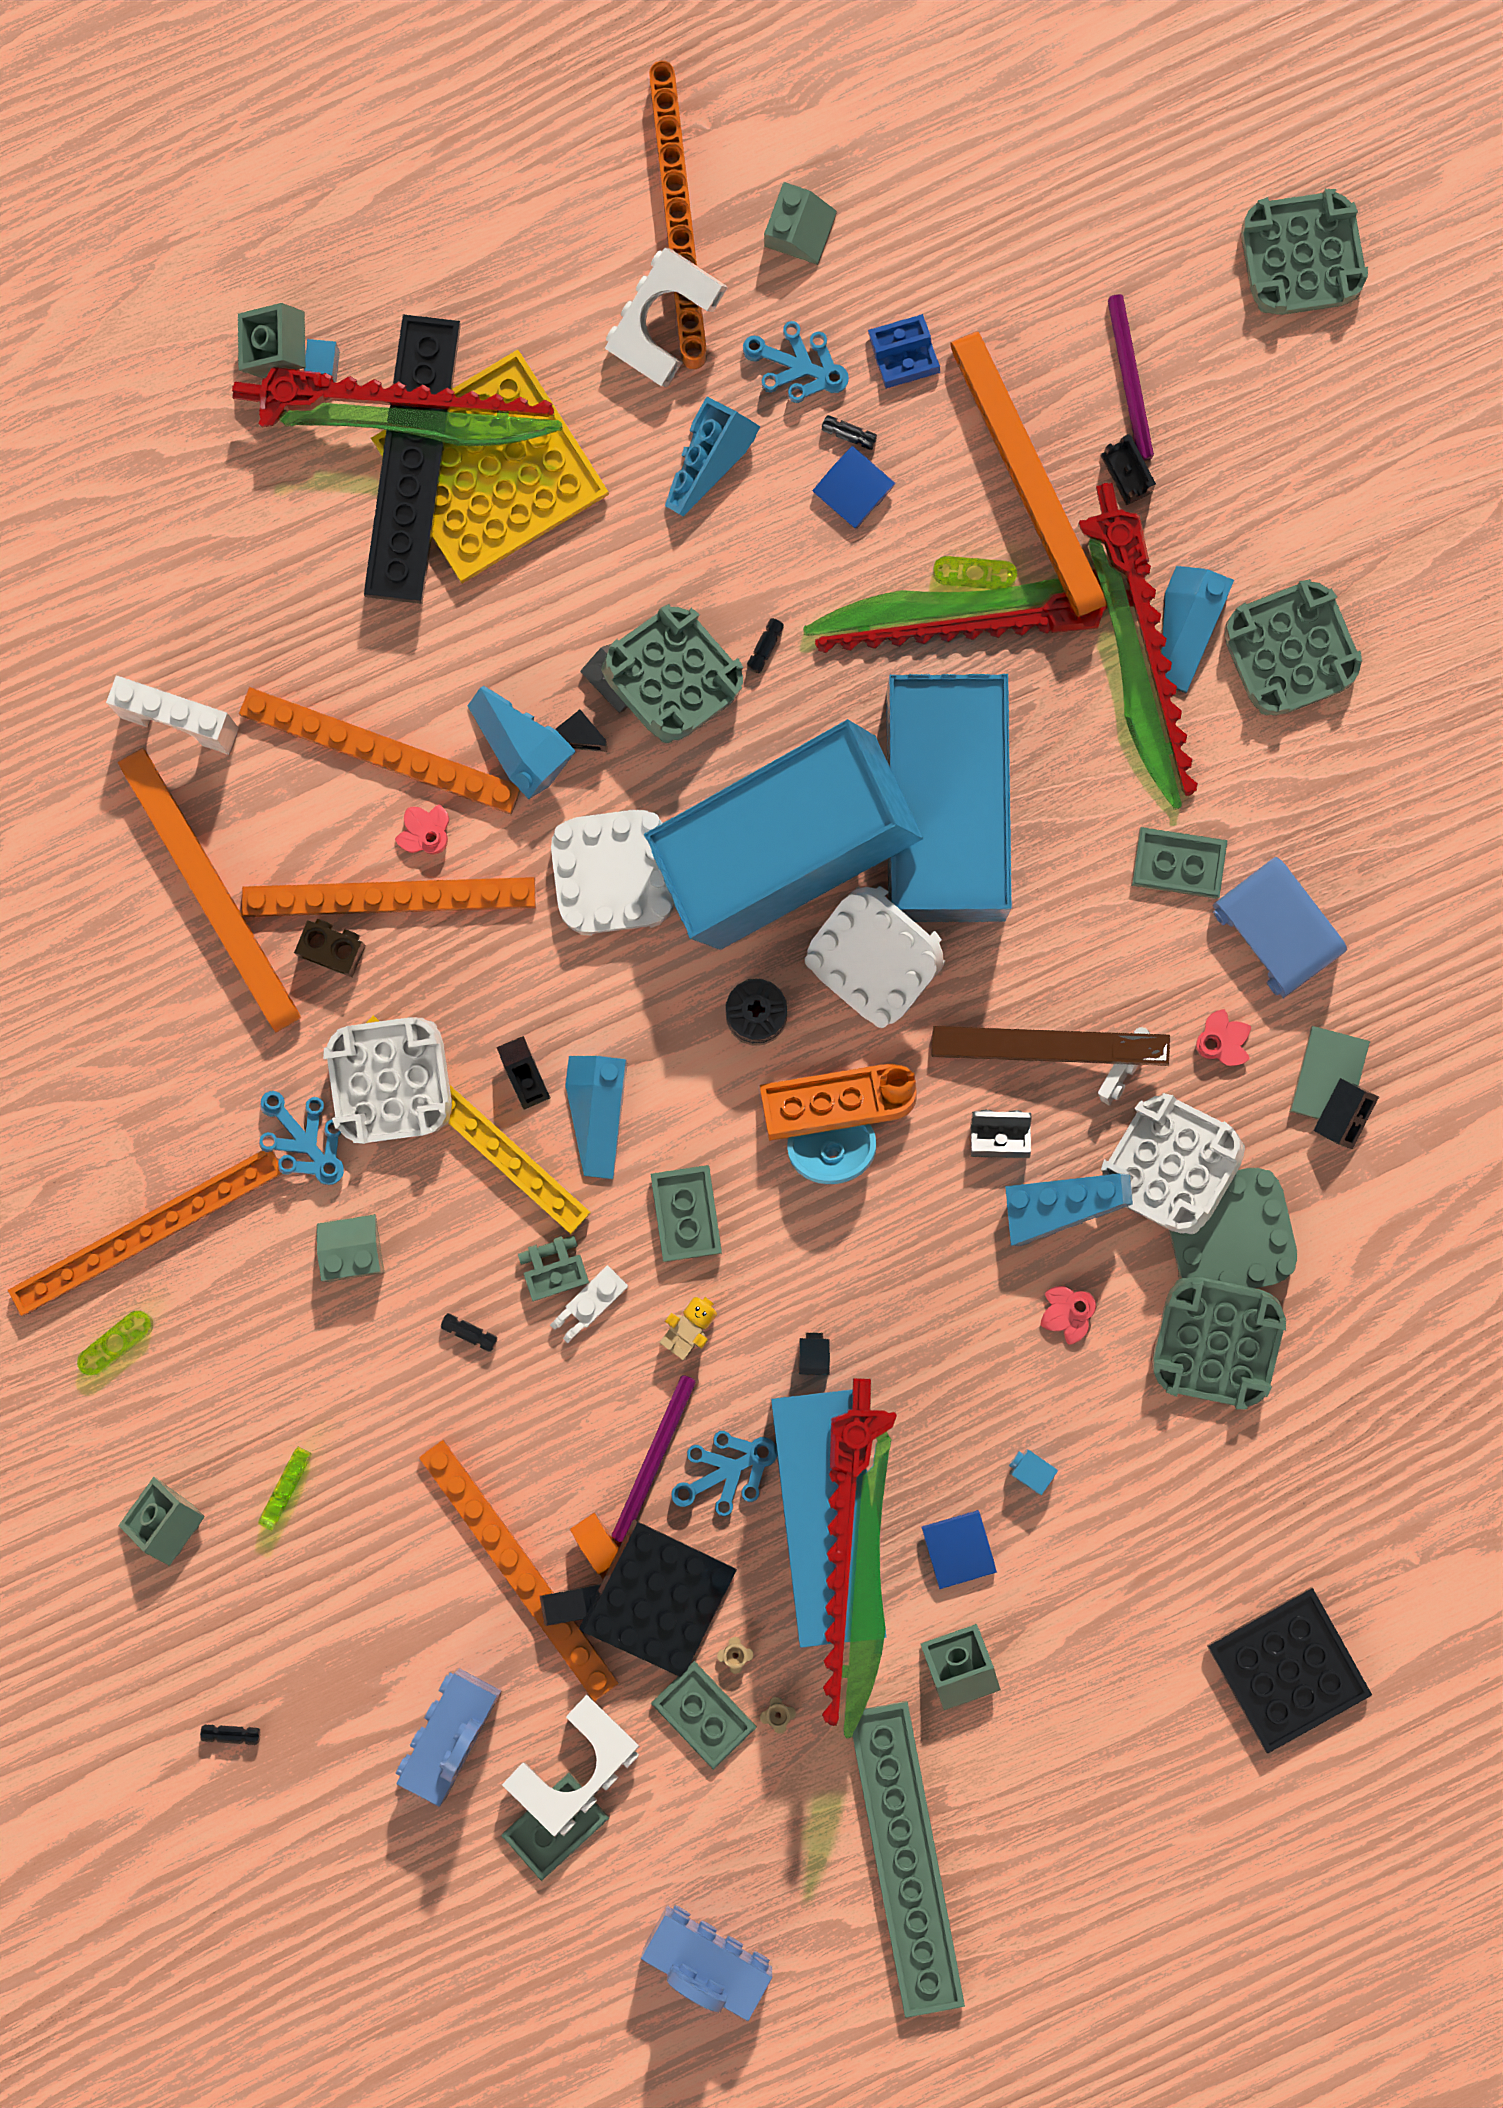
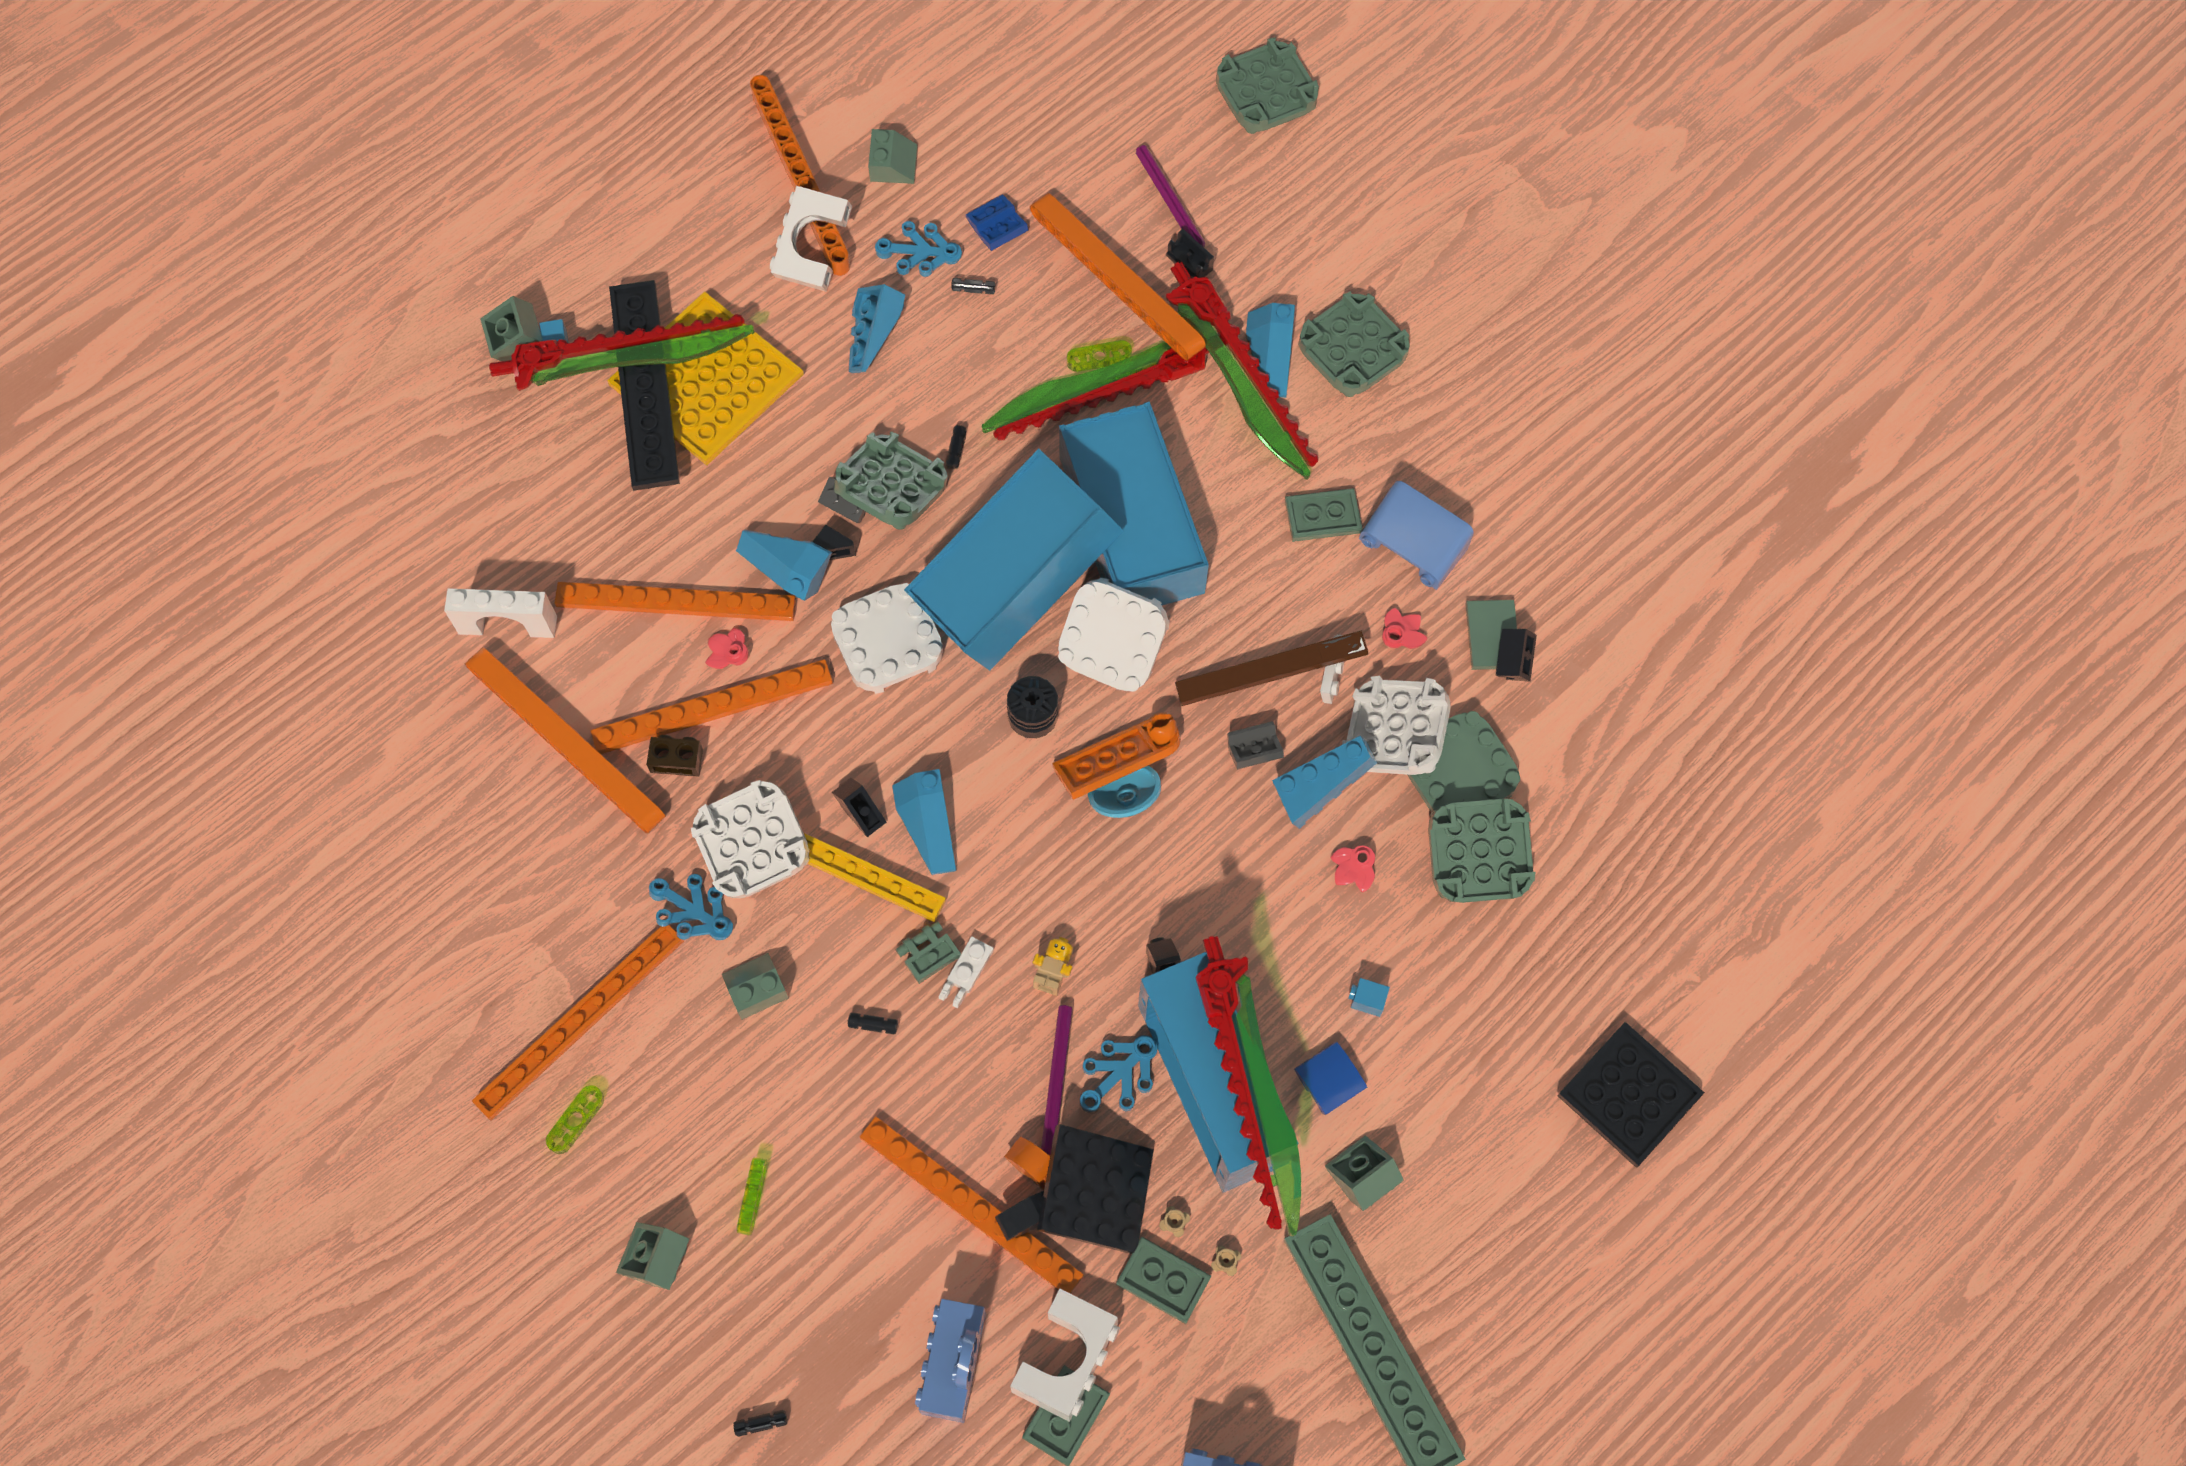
camera: 20 degrees left, 15 degrees down
(686, 1213) = (1023, 878): sand green plate -> none
(854, 487) = (989, 321): blue slope -> none

